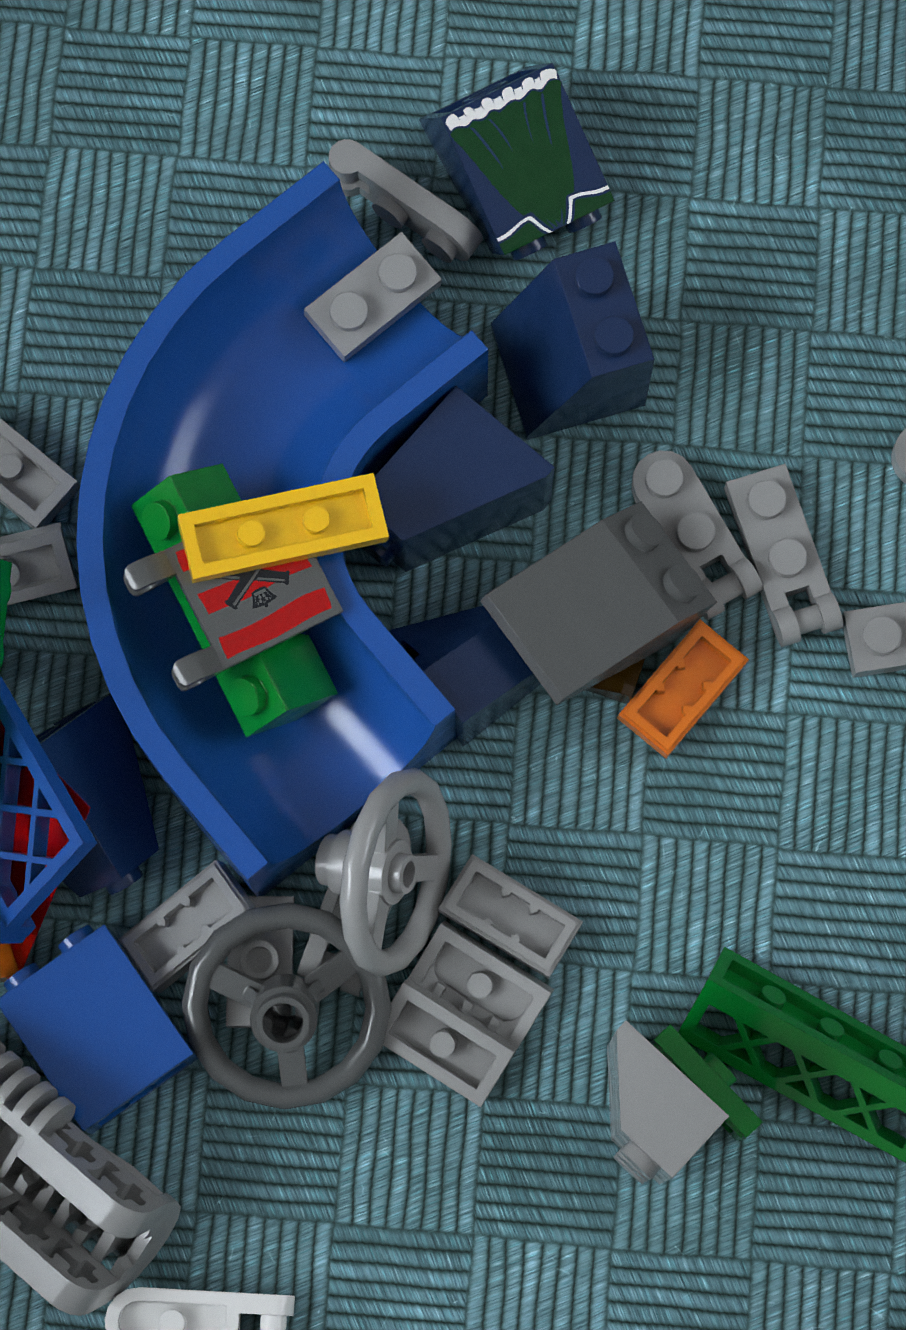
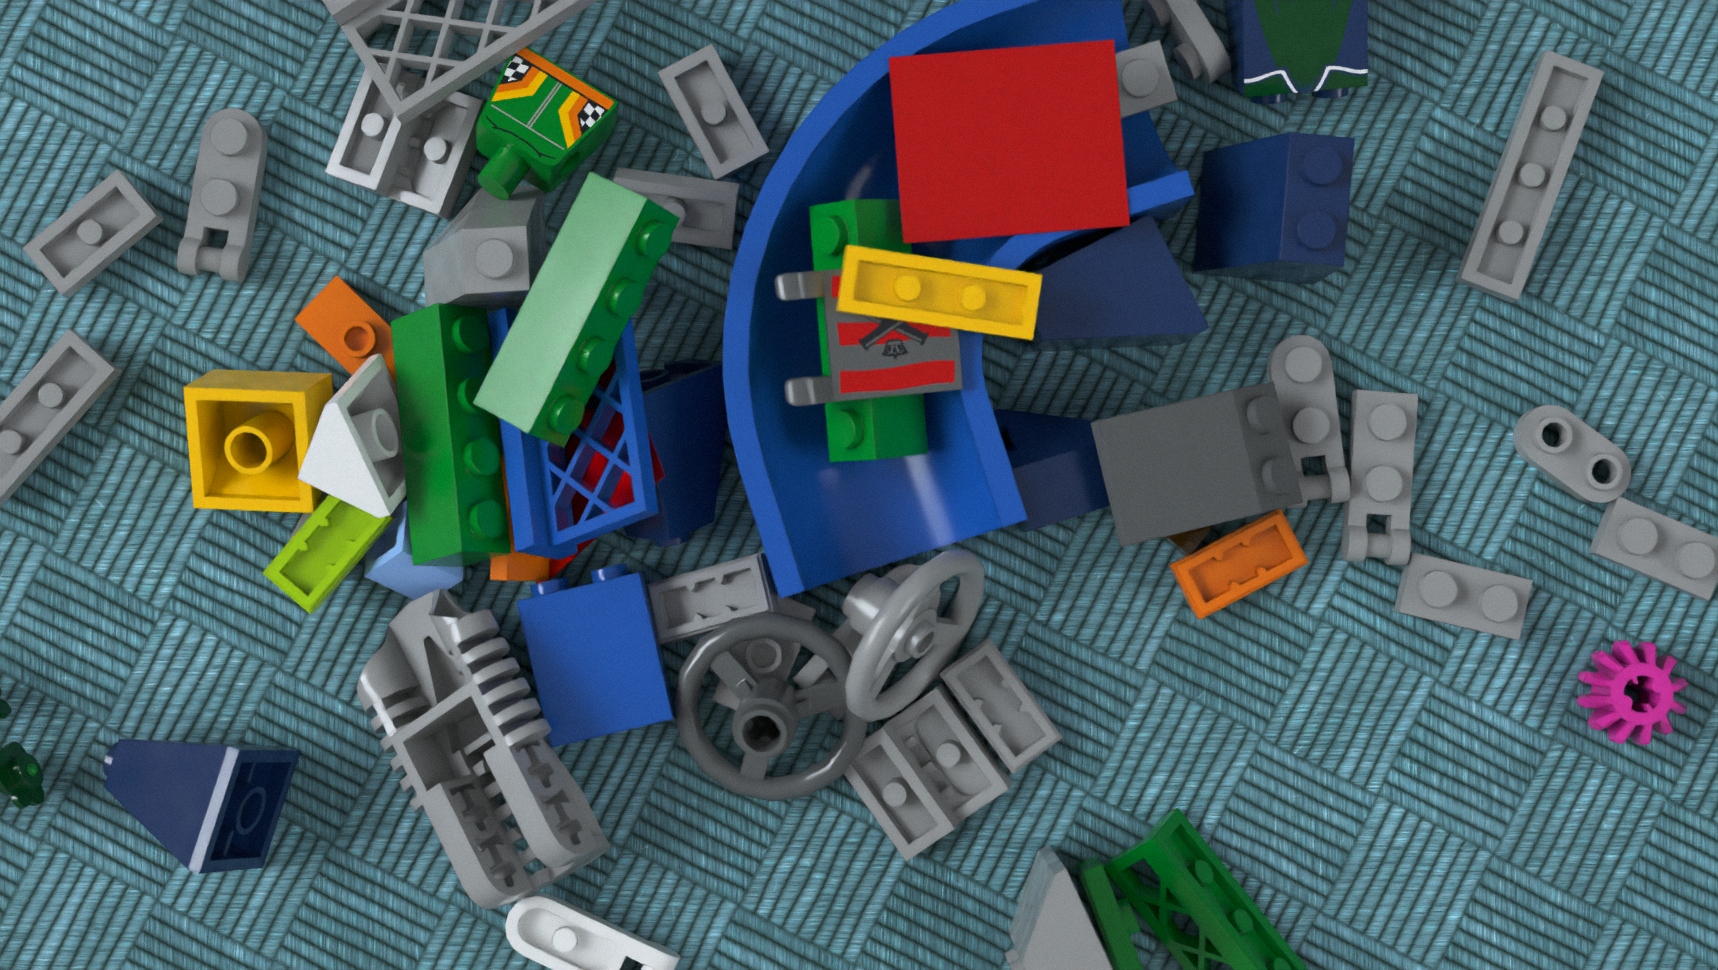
camera: 15 degrees right, 10 degrees up
(294, 370) = (1009, 141): none -> red sticker
(802, 227) = (1529, 176): none -> light grey plate

